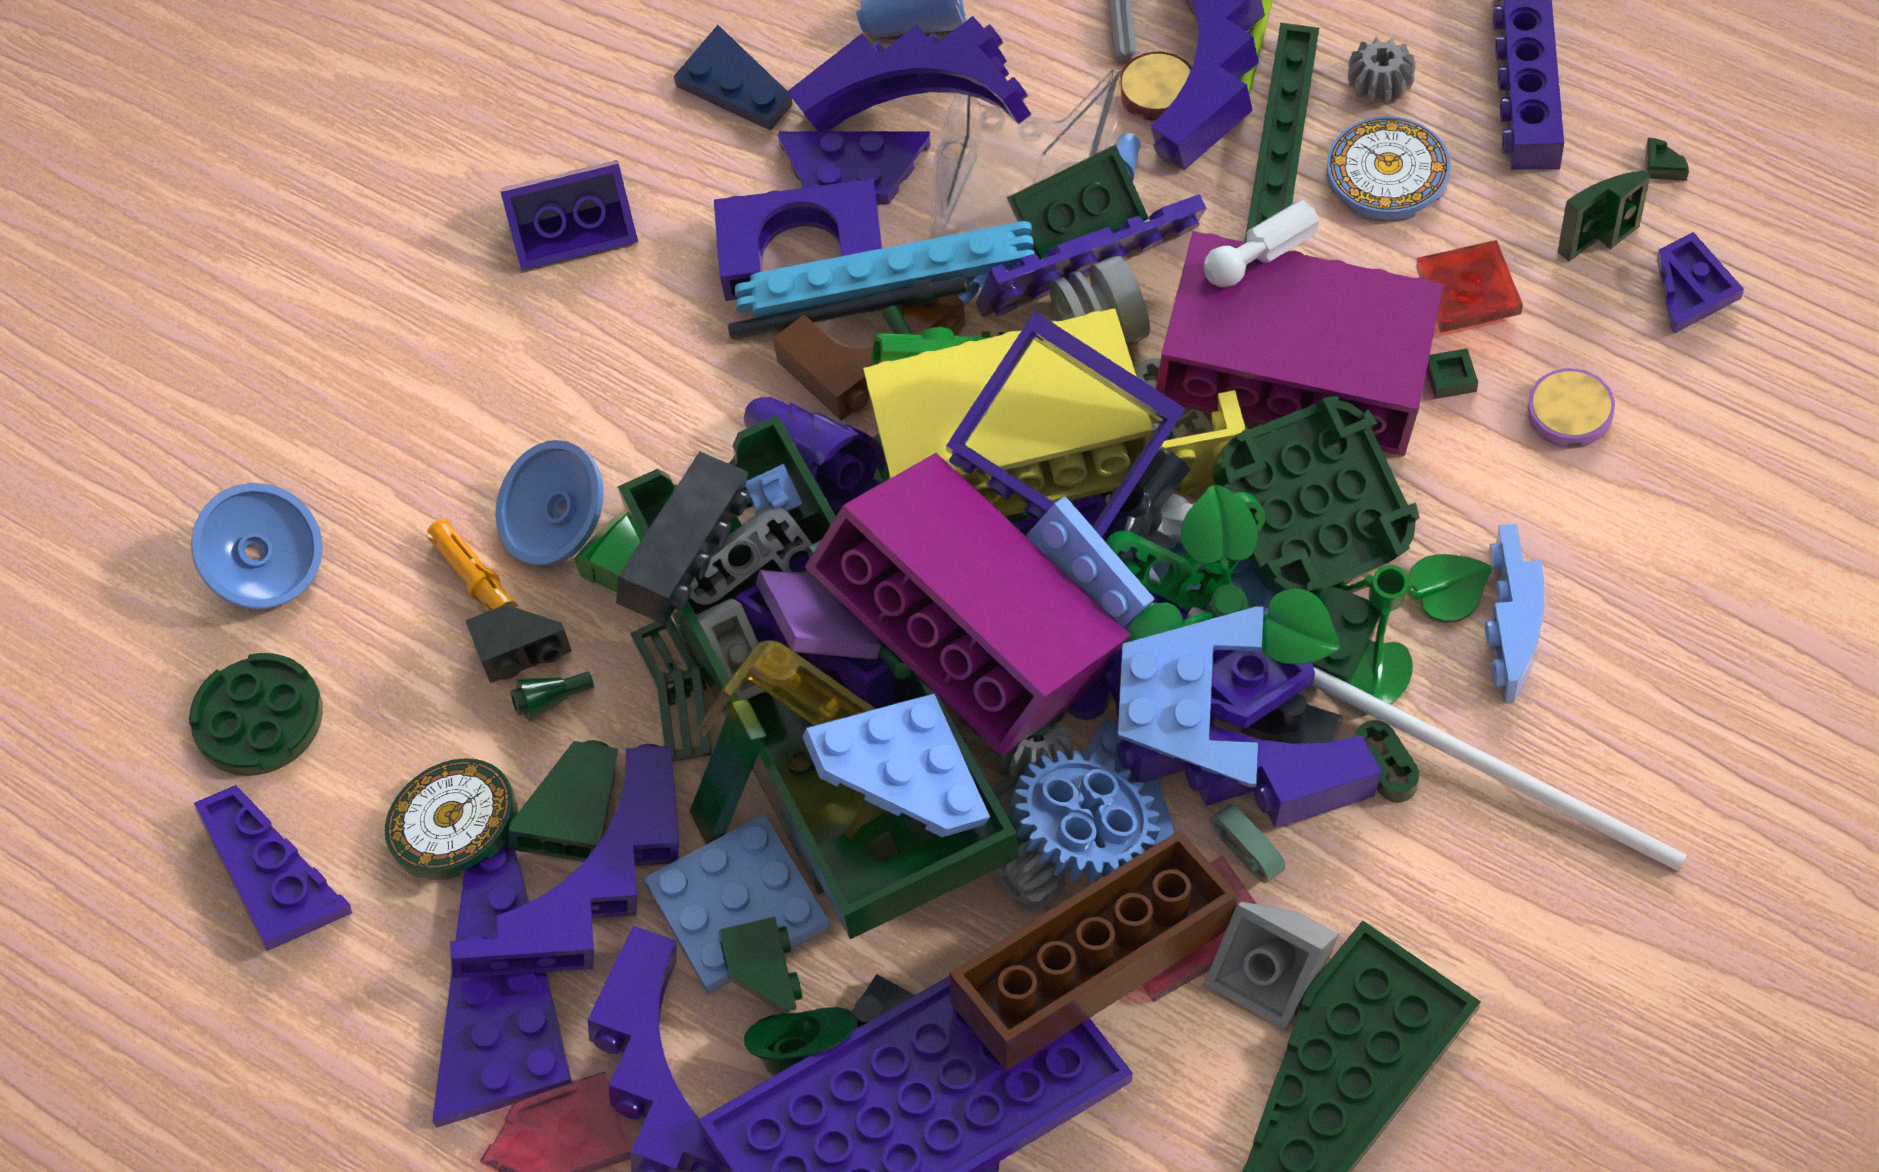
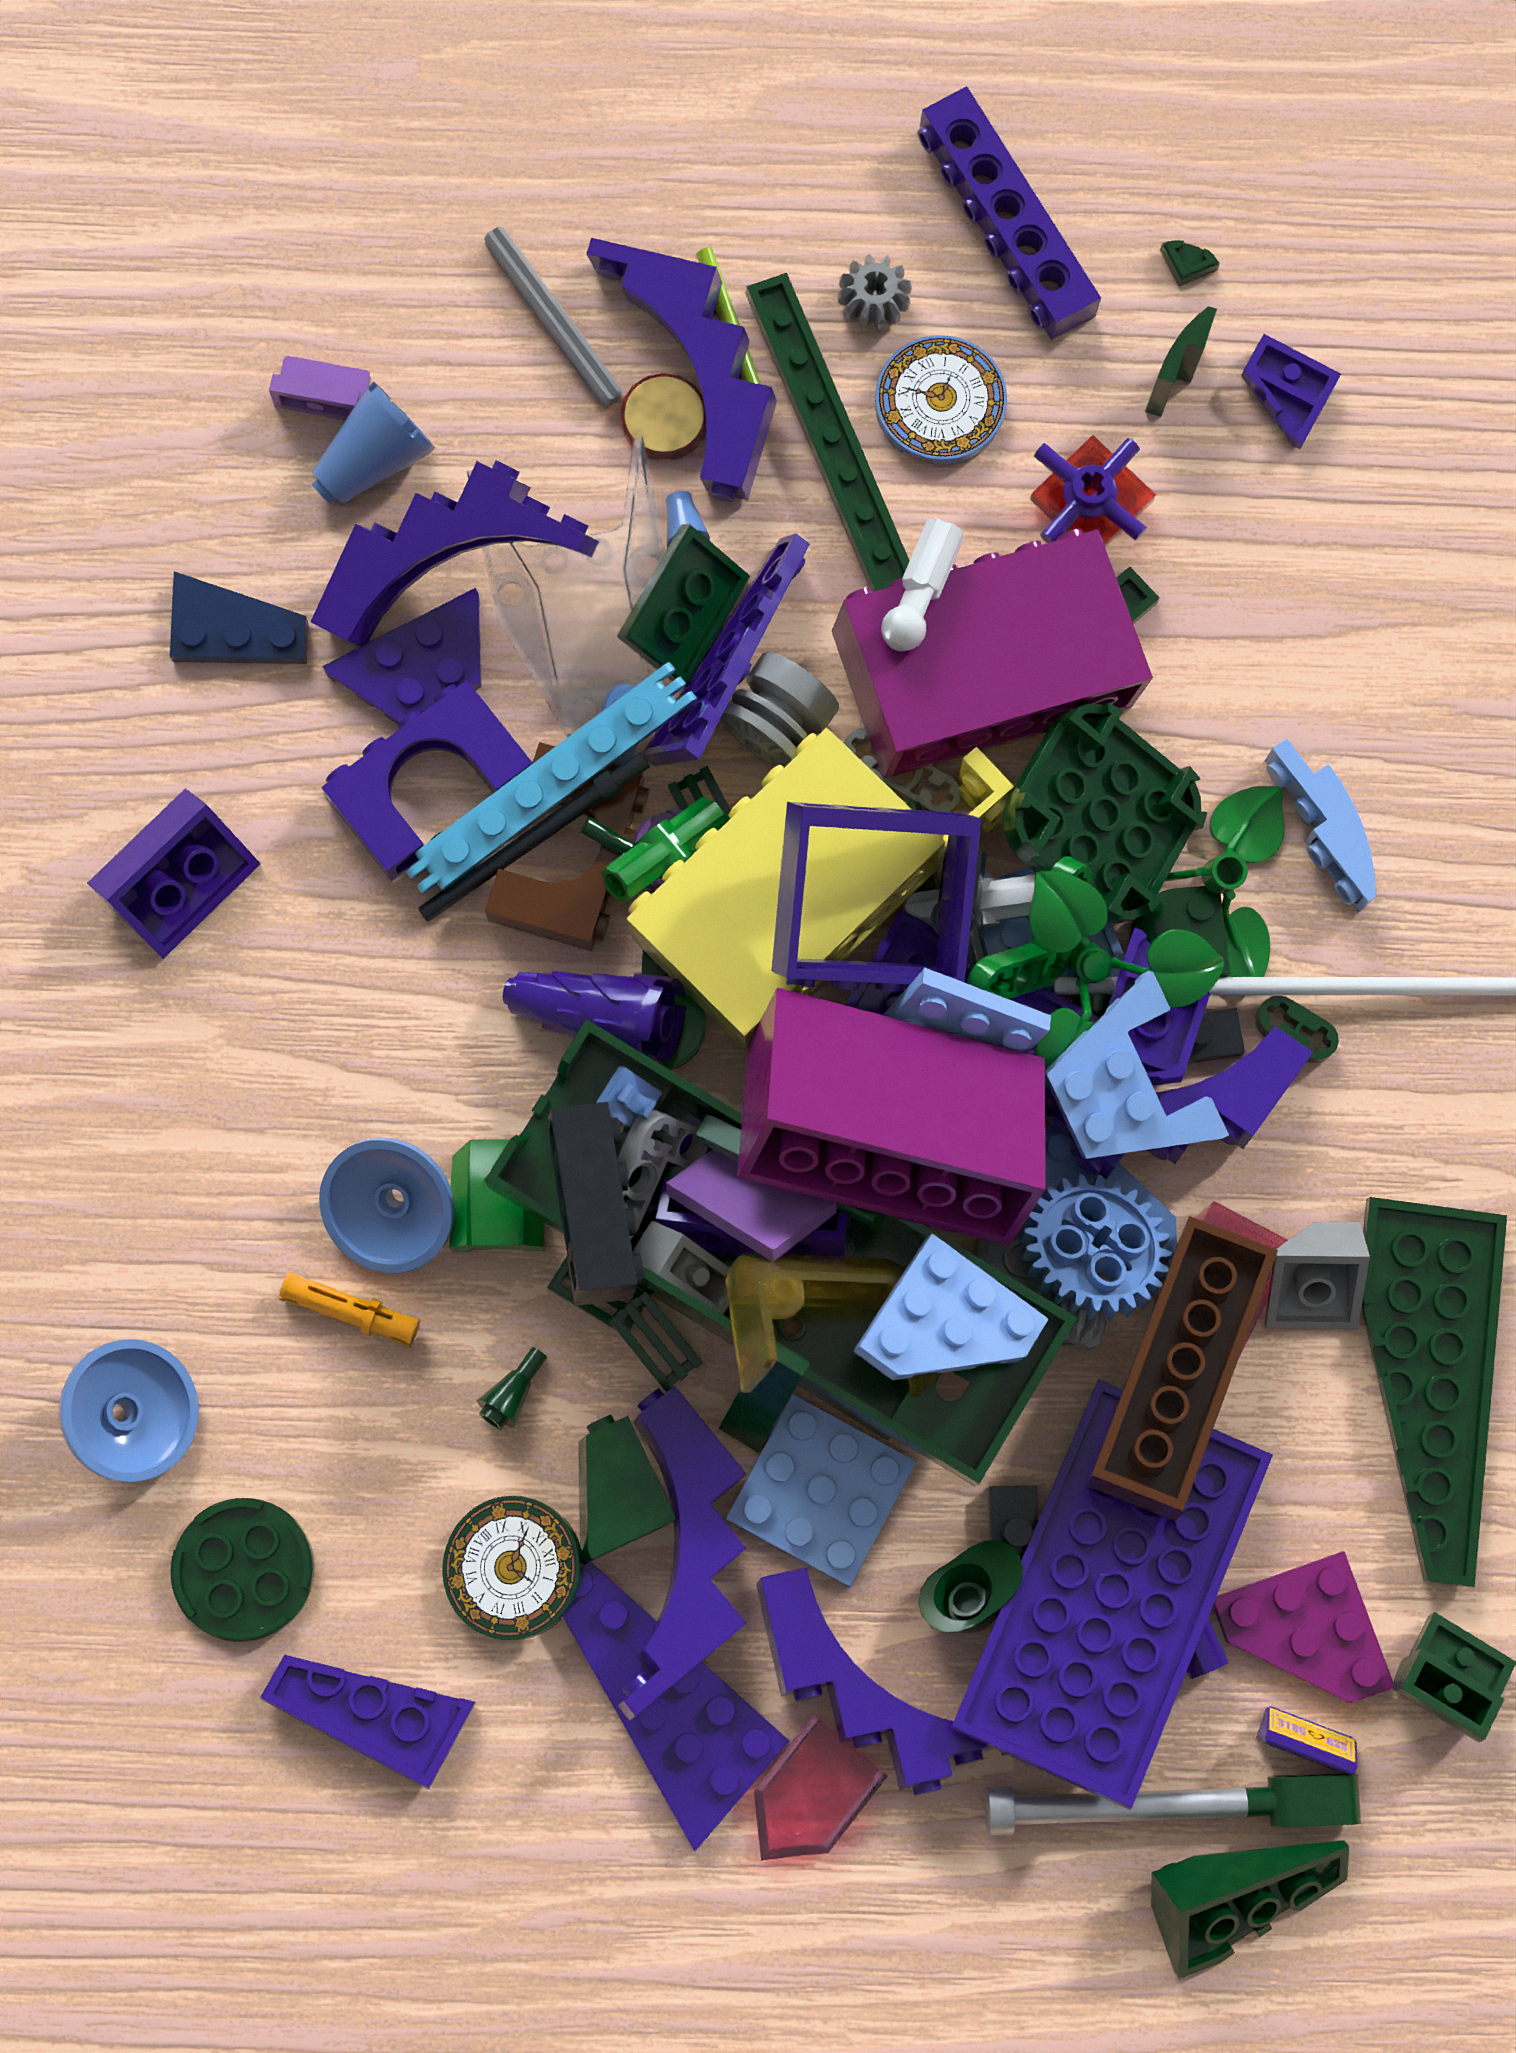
camera: 45 degrees left, 20 degrees up
(515, 640) = (443, 1359): pearl dark grey slope -> none
(757, 962) = (890, 1543): dark green slope -> none
(1248, 843) = (1230, 1178): sand green beam -> none
(1465, 268) = (1086, 477): none -> dark purple bar
(1571, 407) = (1253, 578): pearl gold tile -> none

